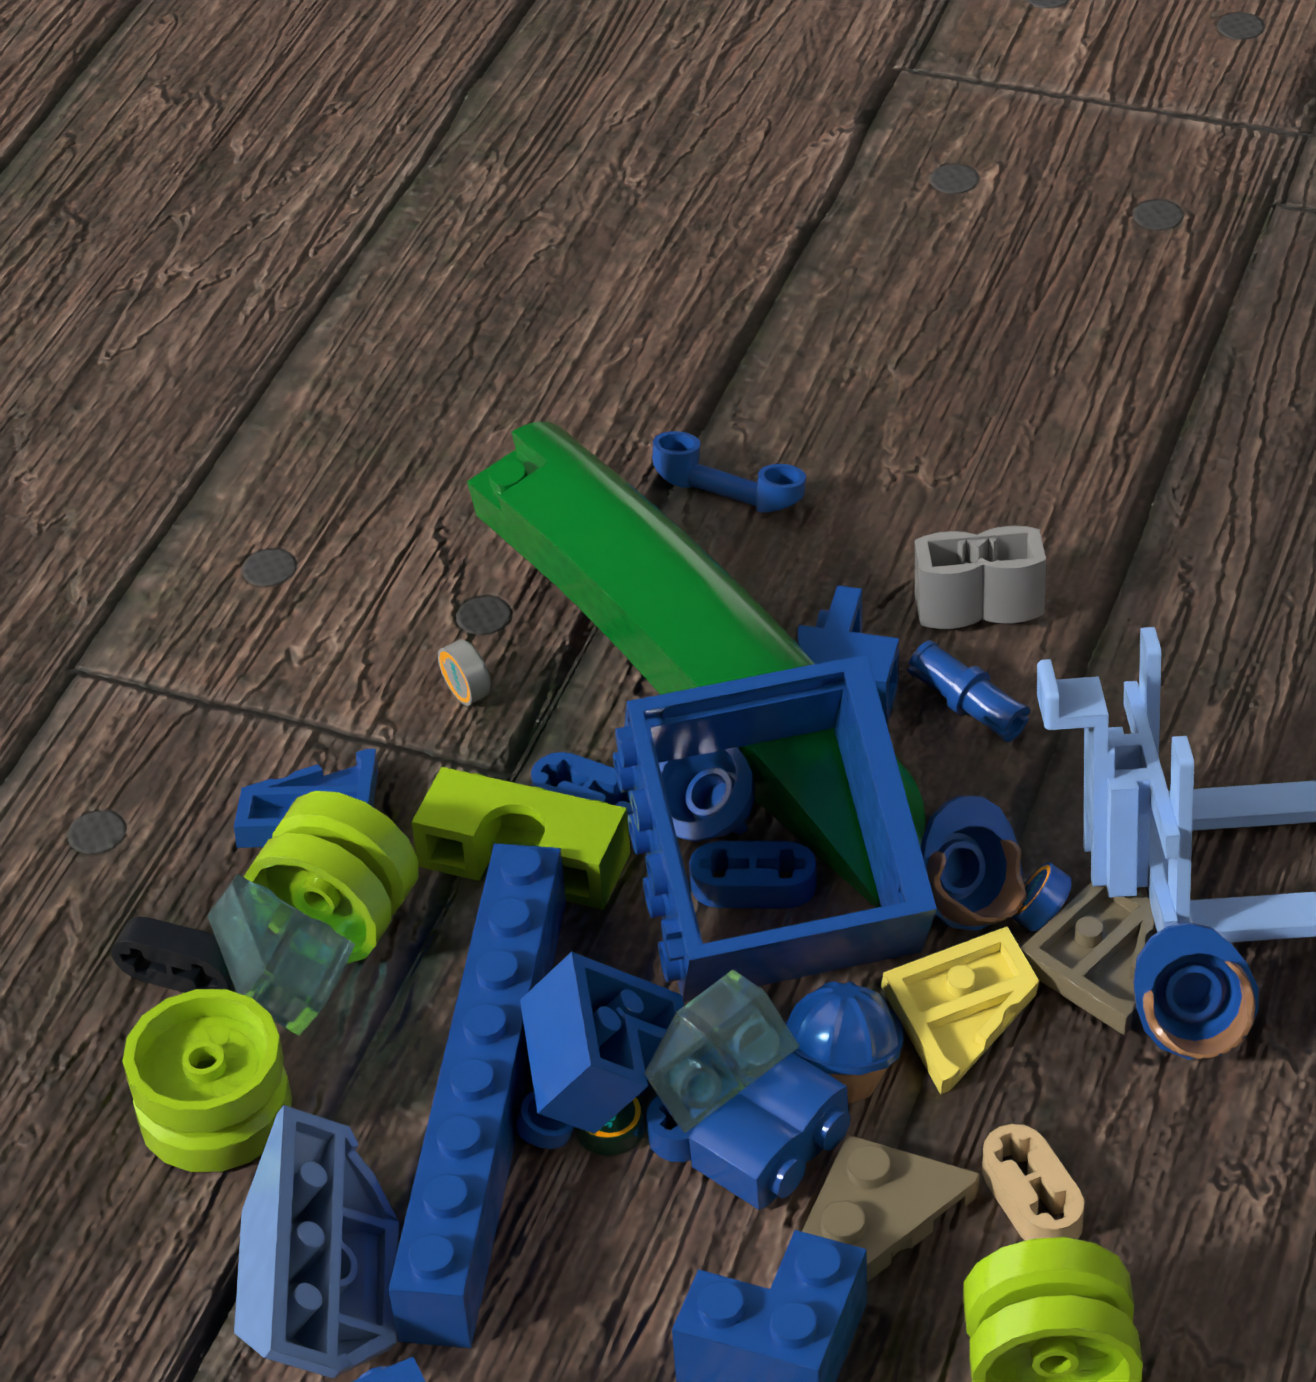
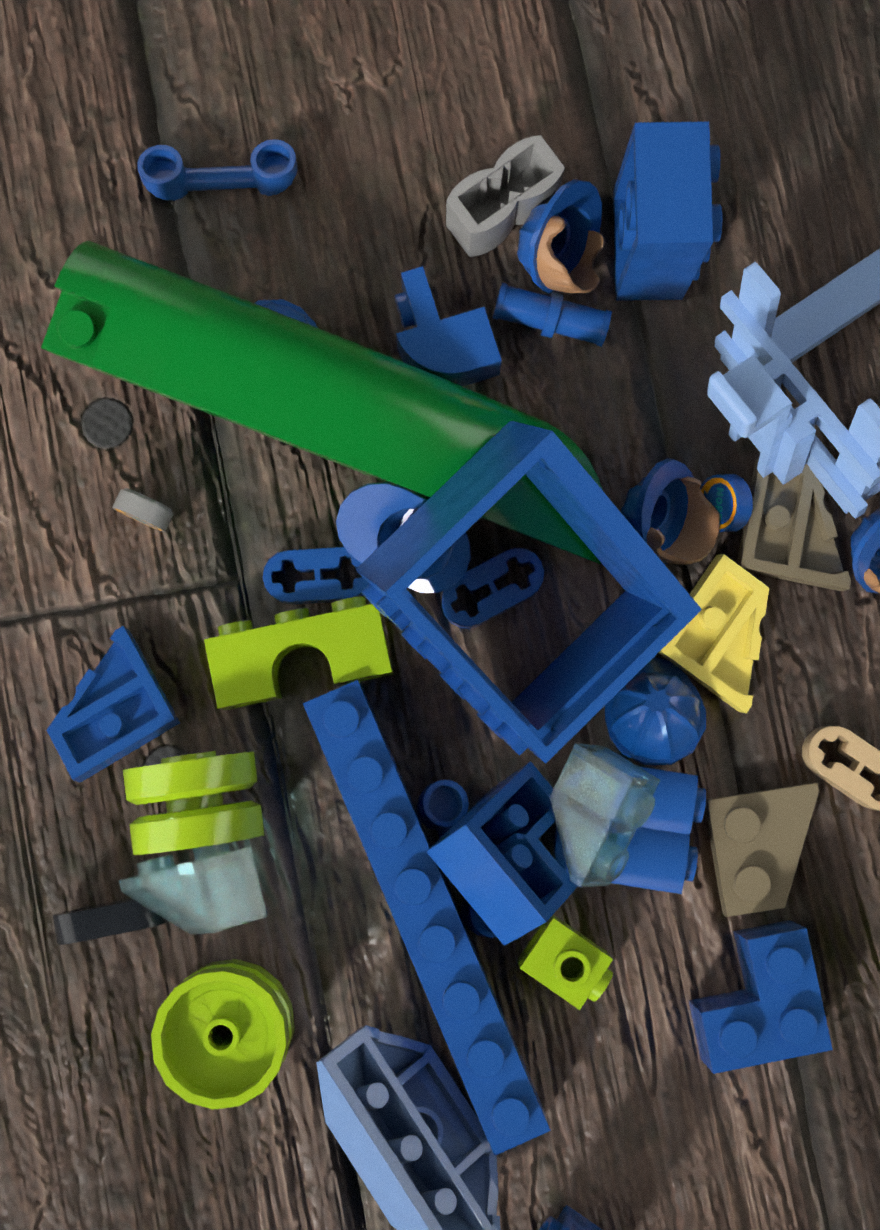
camera: 35 degrees left, 40 degrees up
(593, 1195) = (566, 962): none -> lime brick
(1017, 625) = (563, 240): none -> blue piece
(1107, 590) = (665, 210): none -> blue brick

